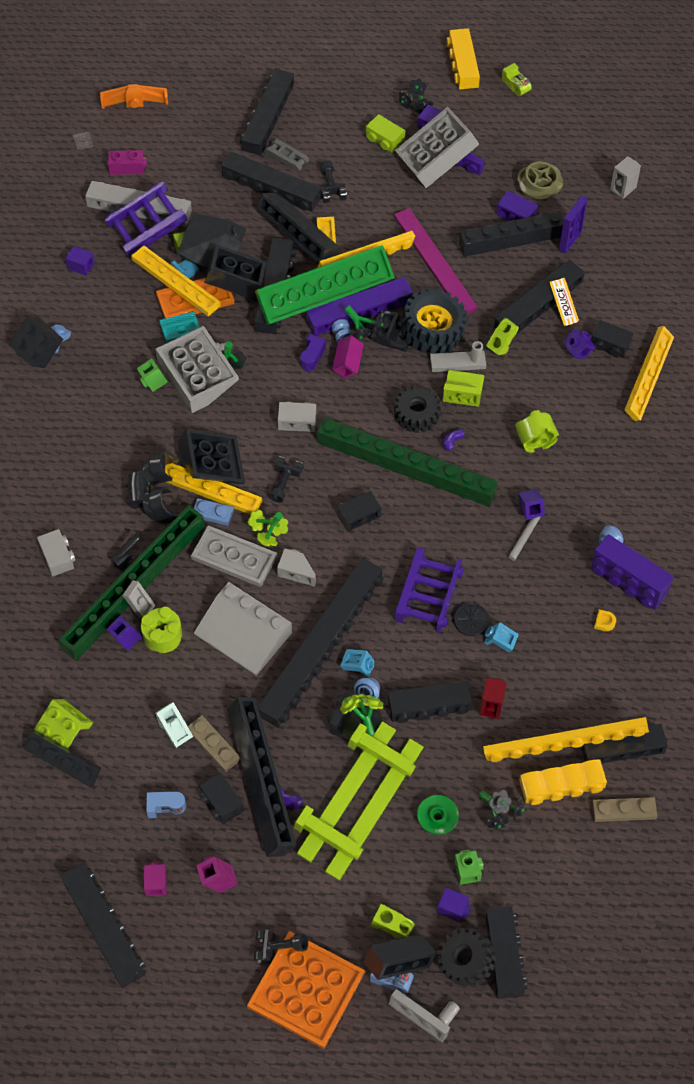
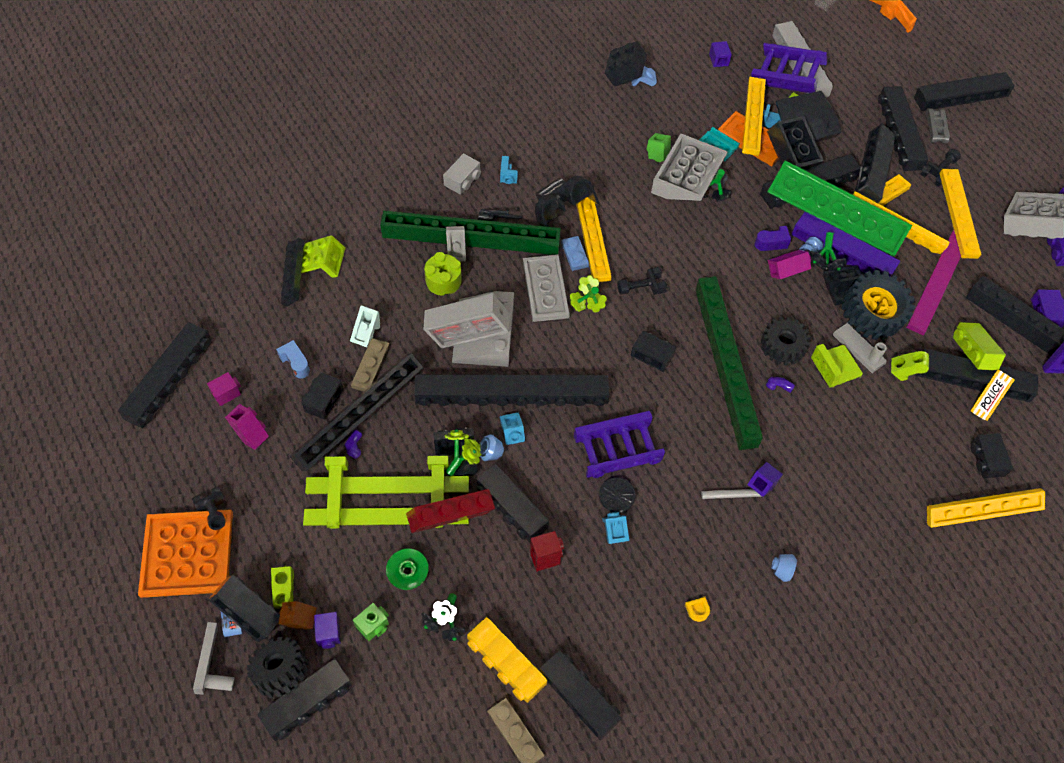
camera: 55 degrees right, 0 degrees up
(79, 514) = (507, 175): none -> dark azure bracket
(124, 632) = (421, 250): dark purple brick -> none
(126, 162) = (830, 34): magenta brick -> none
(211, 456) = (620, 225): black slope -> none
(237, 634) = (467, 320): none -> light grey brick
(296, 568) = (566, 334): light grey slope -> none
(297, 416) = (704, 259): light grey brick -> none
(385, 133) = (1024, 175): lime brick -> none
(387, 203) = (960, 213): none -> yellow plate
(412, 749) = (450, 510): none -> dark red brick
(428, 921) = (297, 615): none -> reddish brown brick
(519, 279) = (979, 346): none -> lime brick
(537, 431) = (840, 443): lime brick -> none
(572, 738) = (548, 643): yellow plate -> none
(579, 344) = (960, 430): dark purple brick -> none
(631, 572) = (760, 603): dark purple brick -> none

